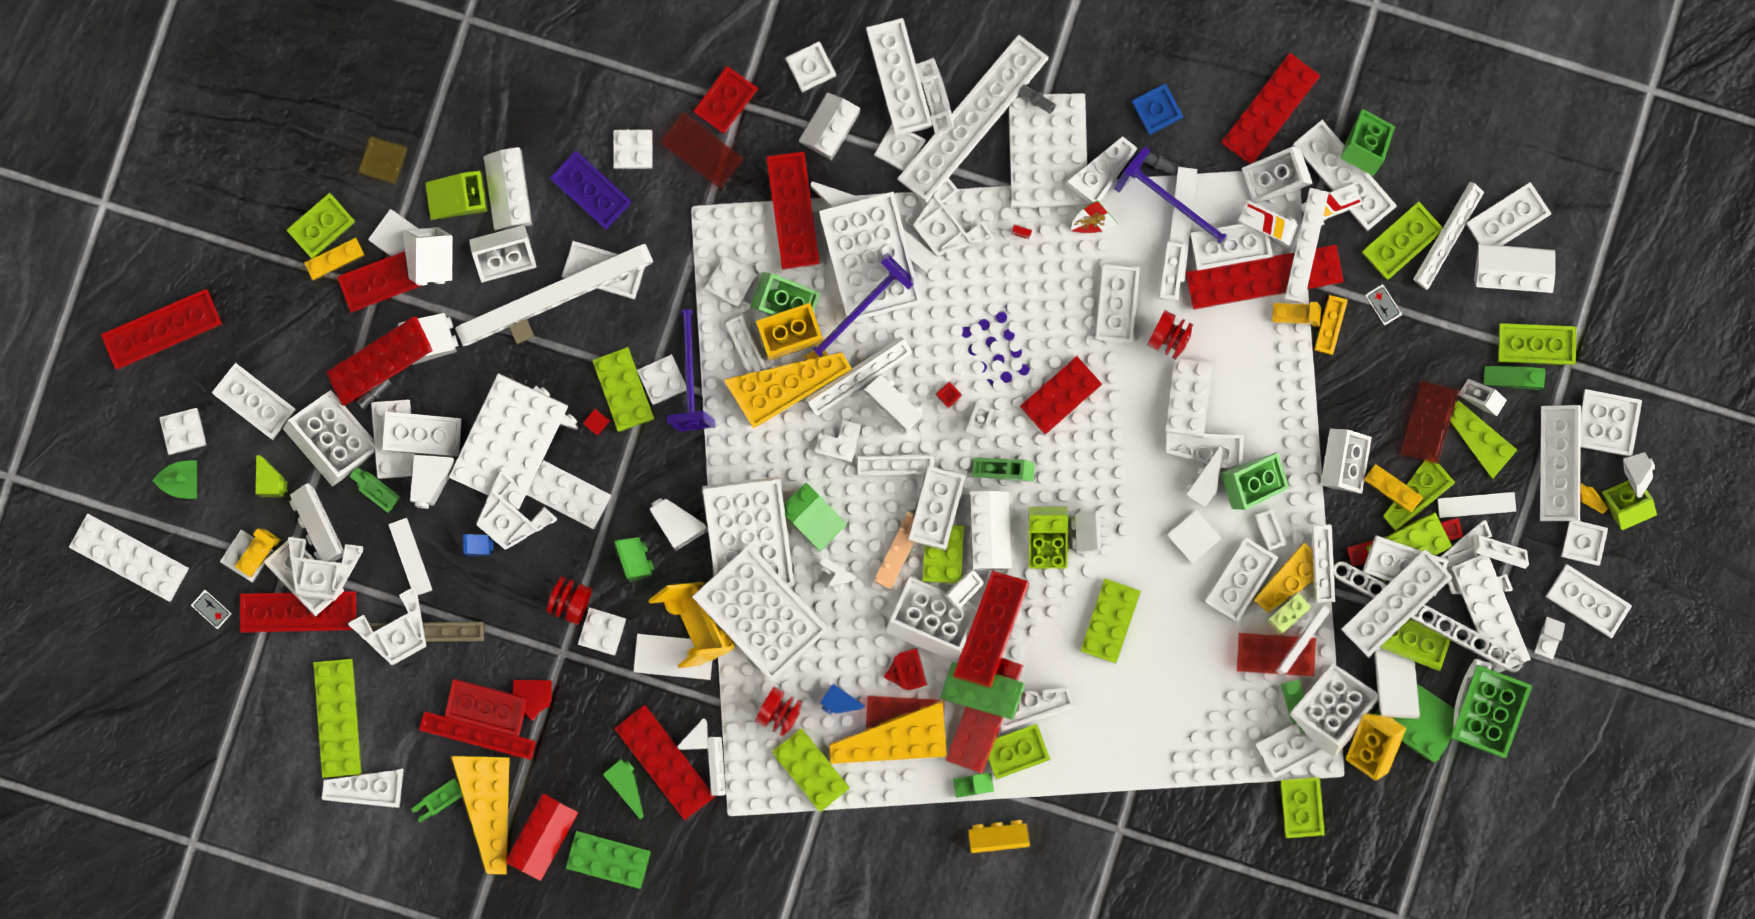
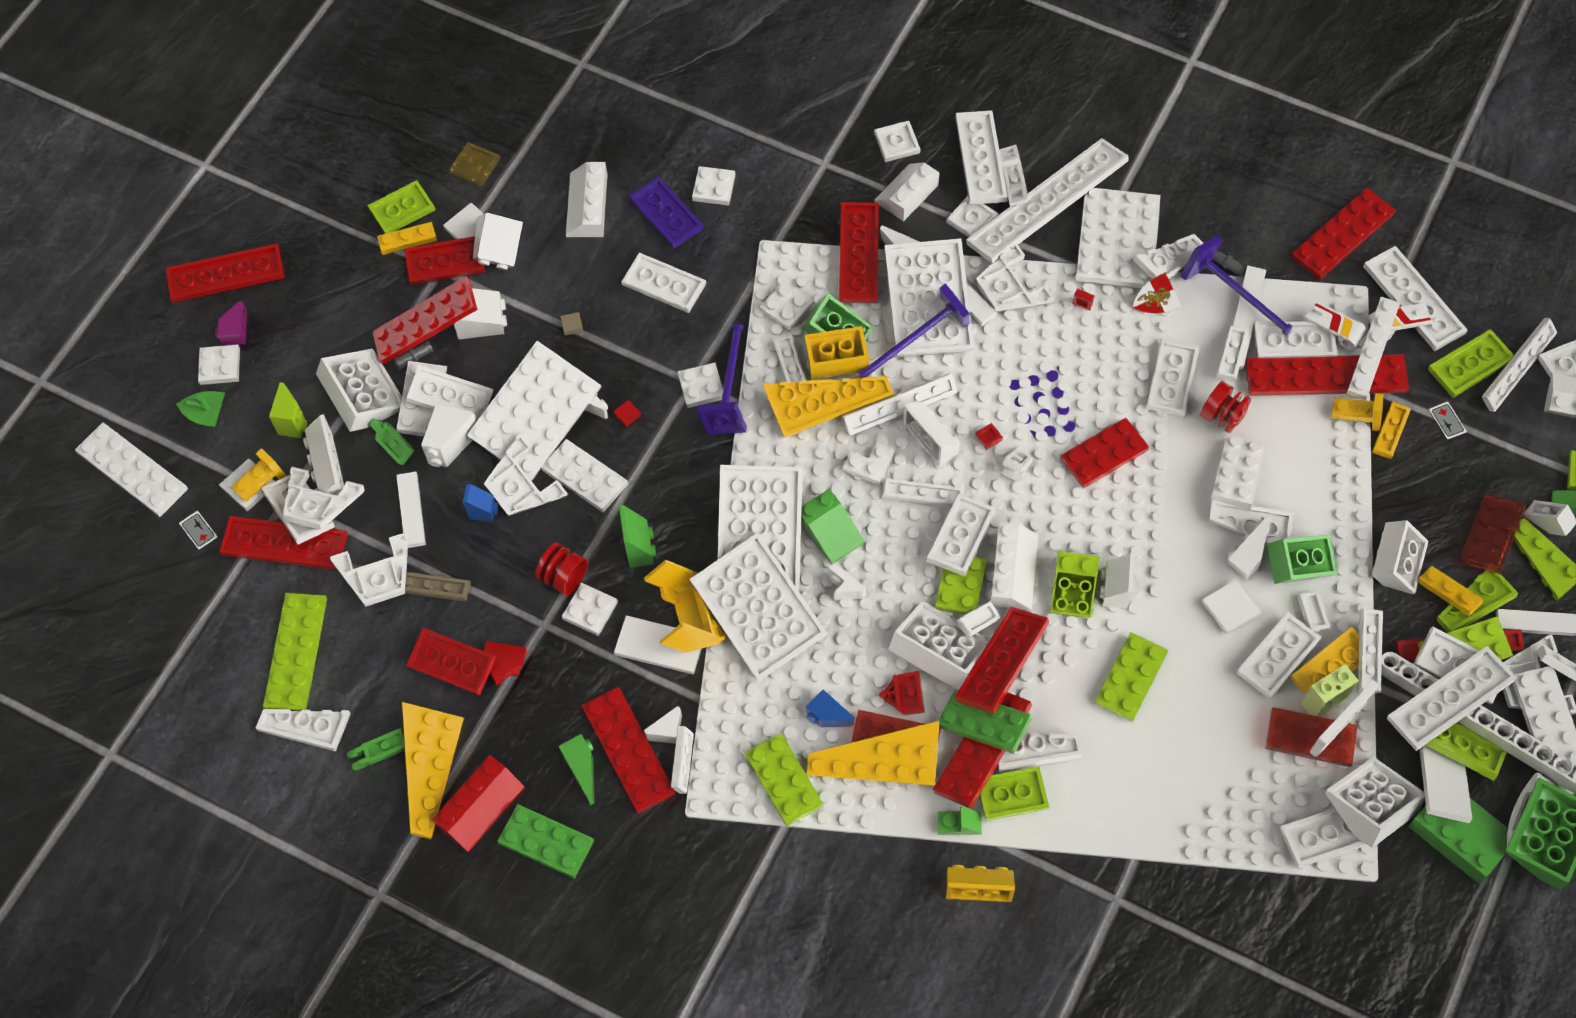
camera: 10 degrees right, 20 degrees down
(186, 389) = (232, 325): none -> magenta slope
(254, 401) = (293, 345): white plate -> none
(456, 195) = (537, 198): lime slope -> none
(477, 735) = (436, 690): red plate -> none
(502, 253) = (568, 253): white slope -> none
(554, 295) = (610, 293): white beam -> none
(623, 389) = (660, 388): lime plate -> none
(676, 523) = (689, 512): white slope -> none
(702, 150) = (780, 194): clear red plate -> none
(725, 100) = (810, 156): red plate -> none
(778, 711) = (759, 708): red wheel -> none
(896, 555) = (911, 578): light nougat hinge -> none
(1003, 469) = (1037, 510): bright green slope -> none
(1037, 99) = (1113, 189): dark grey pin -> none
(1157, 109) = (1230, 217): blue plate -> none
(1277, 175) = (1347, 284): white slope -> none
(1293, 695) = (1325, 778): bright green hinge -> none
(1302, 807) = (1327, 906): lime plate -> none
(1368, 142) = (1440, 270): bright green slope -> none
(1375, 745) = (1418, 845): yellow slope -> none

